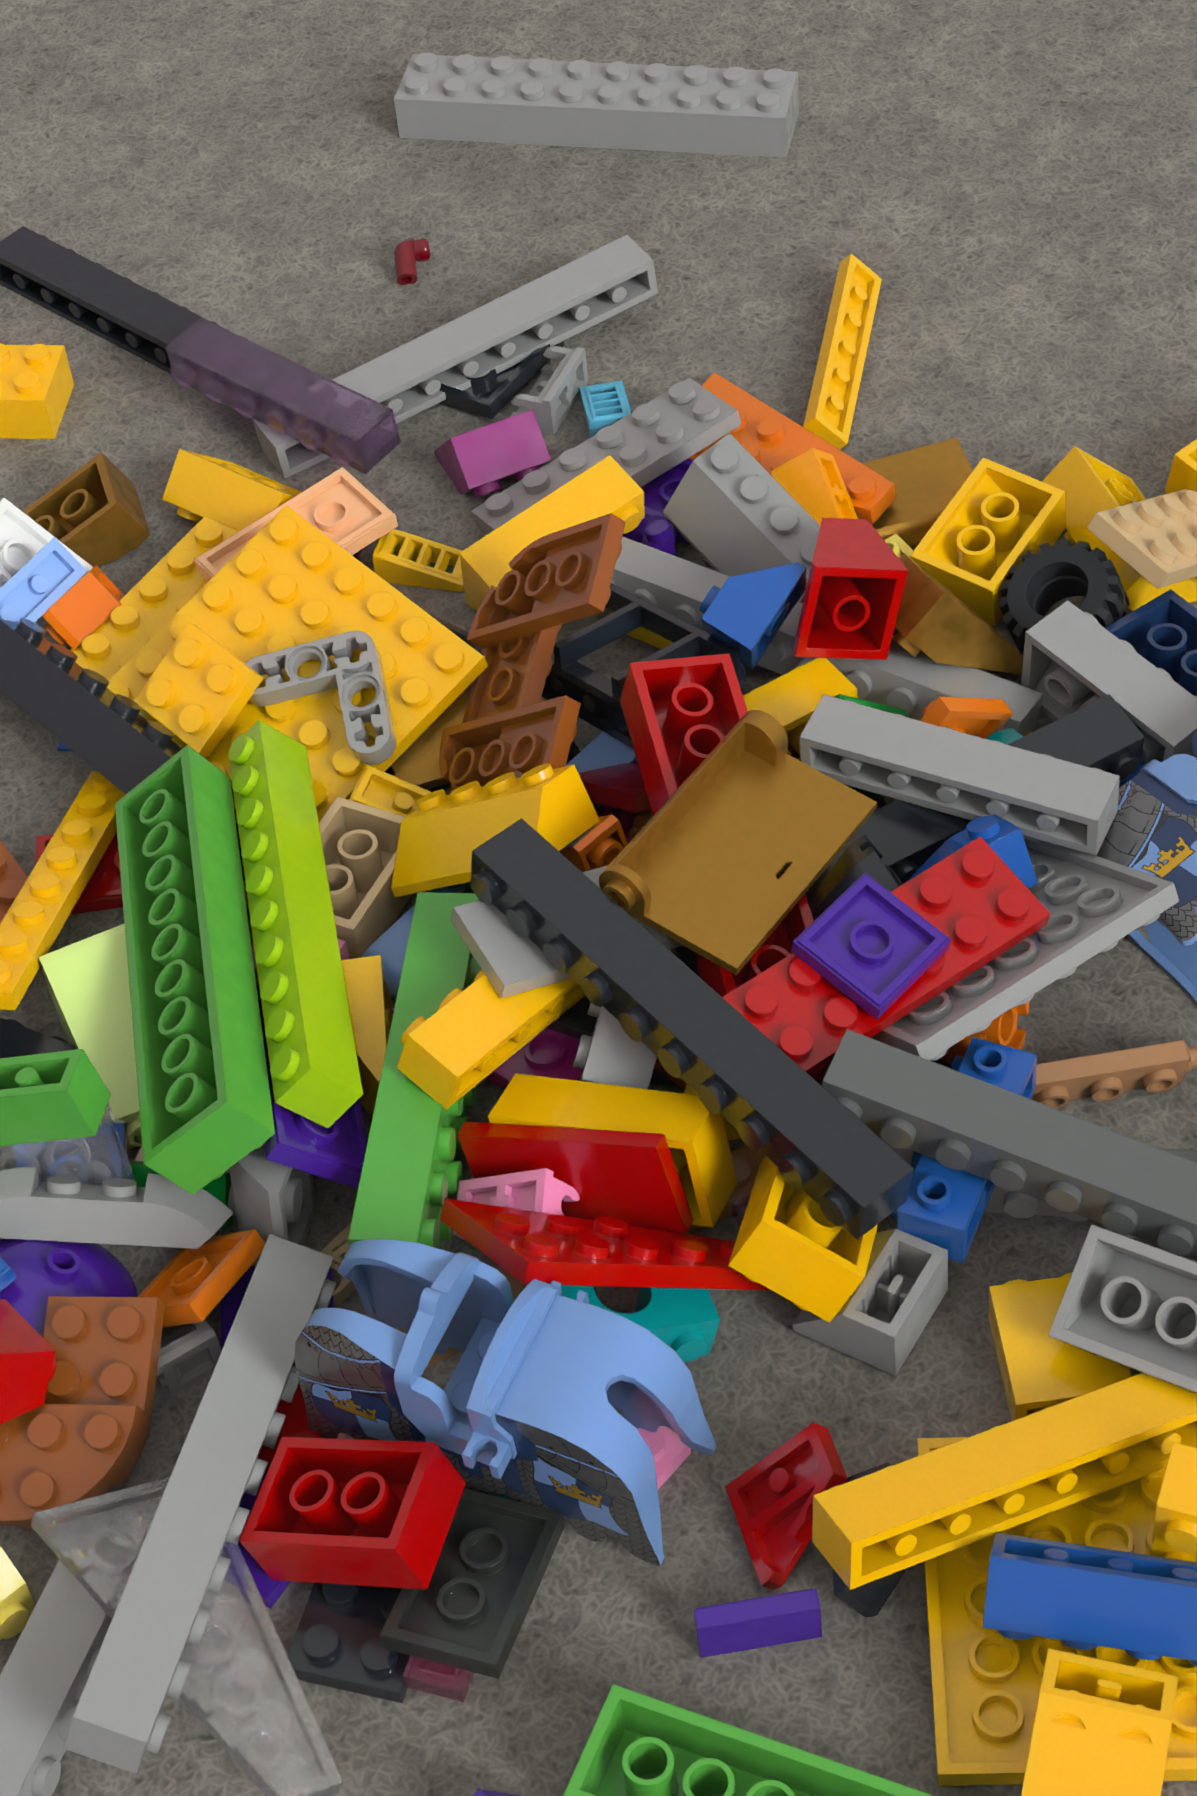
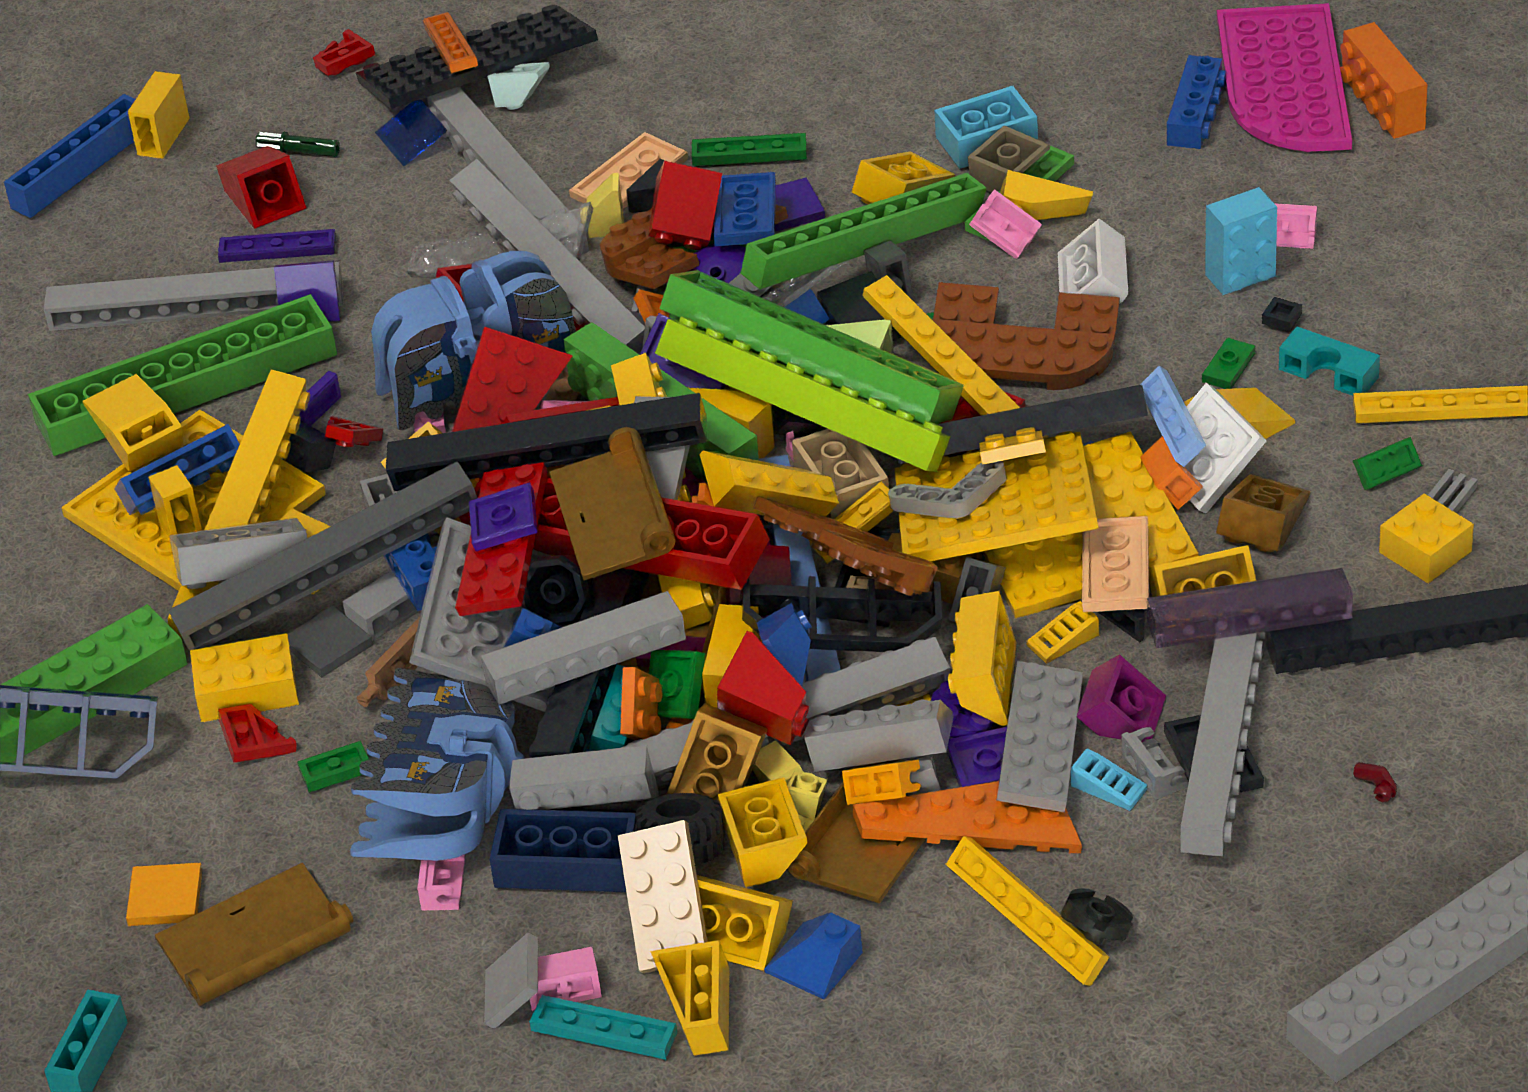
camera: 130 degrees right, 5 degrees down
(800, 298) = (1097, 917): none -> pearl dark grey plate
(1057, 423) = (818, 954): none -> blue slope

